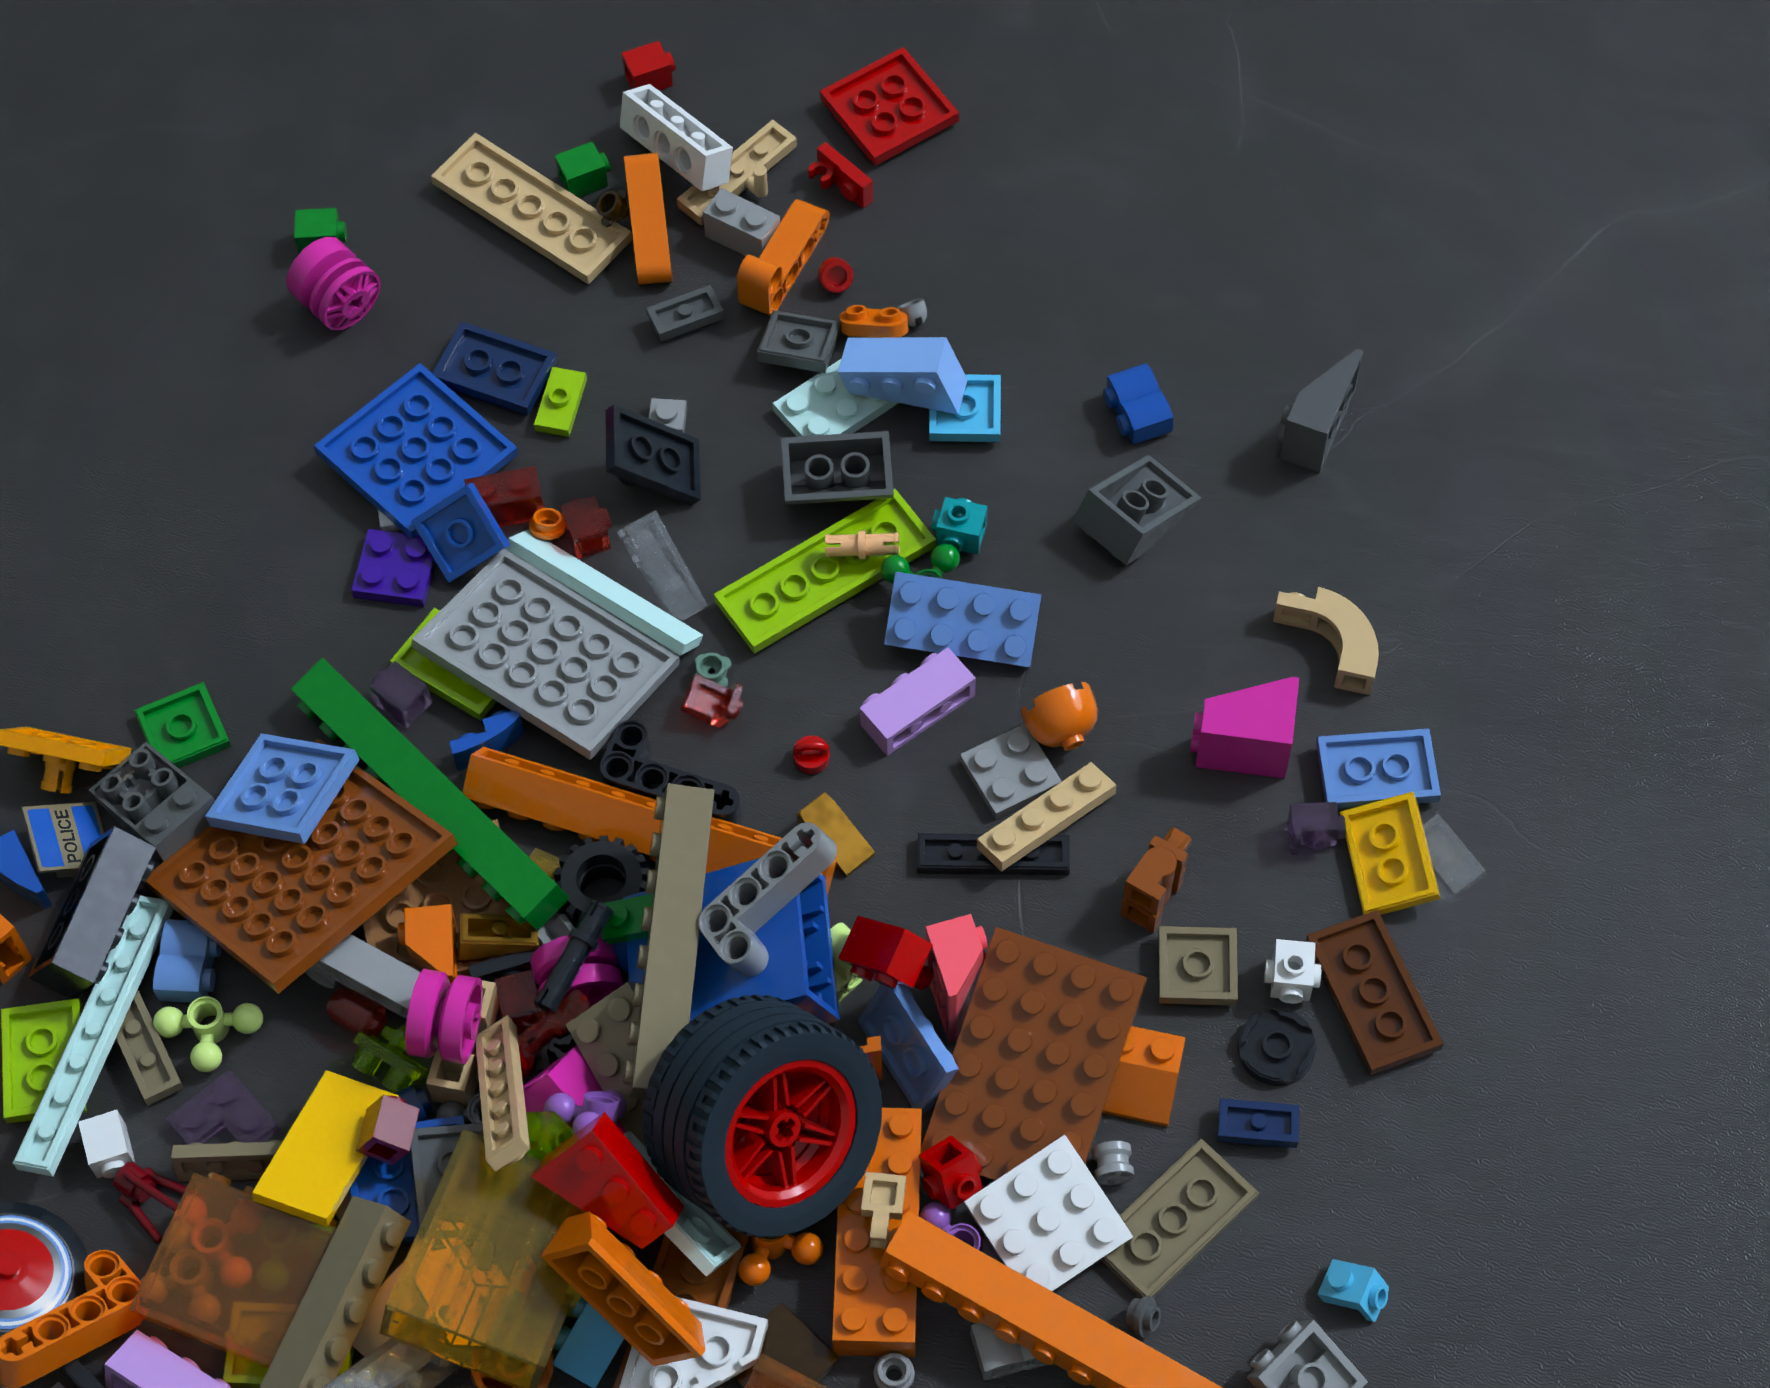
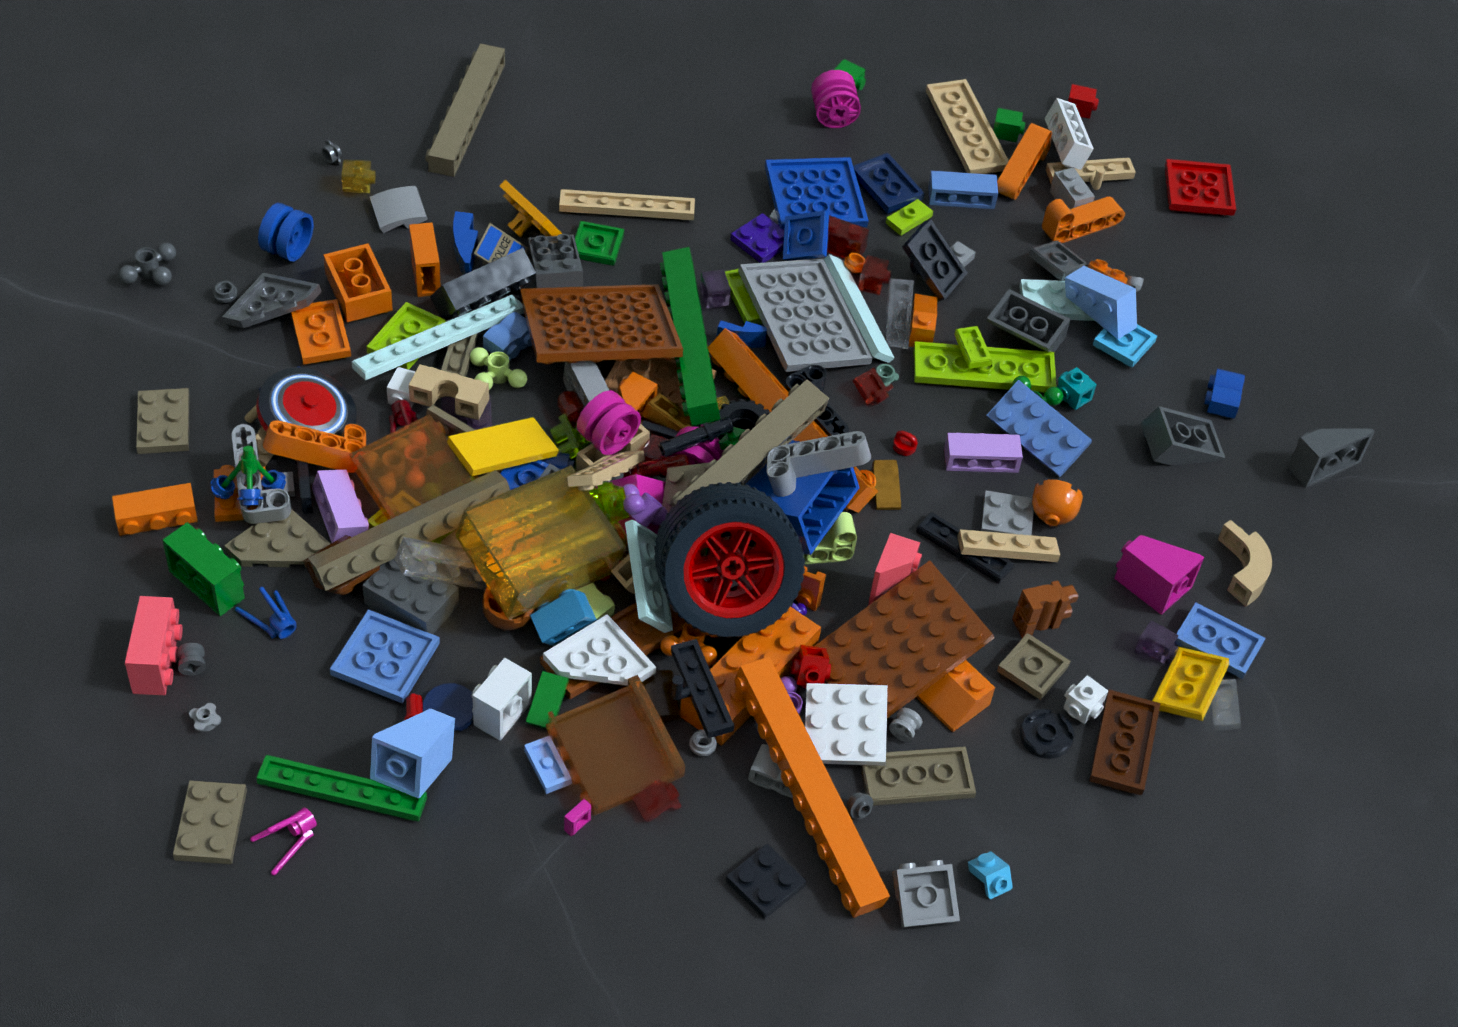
camera: 30 degrees right, 10 degrees down
(146, 1114) = (431, 384): none -> tan arch
(176, 641) = (627, 204): none -> tan plate
(282, 788) = (620, 288): medium blue plate -> none
(388, 1129) = (538, 454): brick -> none
(599, 313) = (963, 190): none -> medium blue brick
(611, 1180) = (623, 532): red wedge -> none
(613, 206) = (1008, 145): dark brown plate -> none
(624, 1291) = (589, 590): orange slope -> none
(685, 313) = (1008, 215): dark grey plate -> none
(699, 550) = (923, 319): none -> orange slope
(796, 555) = (973, 347): none -> lime plate
(835, 275) = (1104, 242): red tile -> none
(837, 169) = (1146, 198): red plate -> none
(852, 1313) = (700, 688): none -> black plate
(862, 544) = (1013, 363): light nougat pin -> none
(882, 1201) = (760, 647): tan plate -> none
(887, 954) = (860, 536): red brick -> none
(909, 1045) = (840, 594): medium blue plate -> none
(1258, 1123) = (1004, 760): dark blue plate -> none

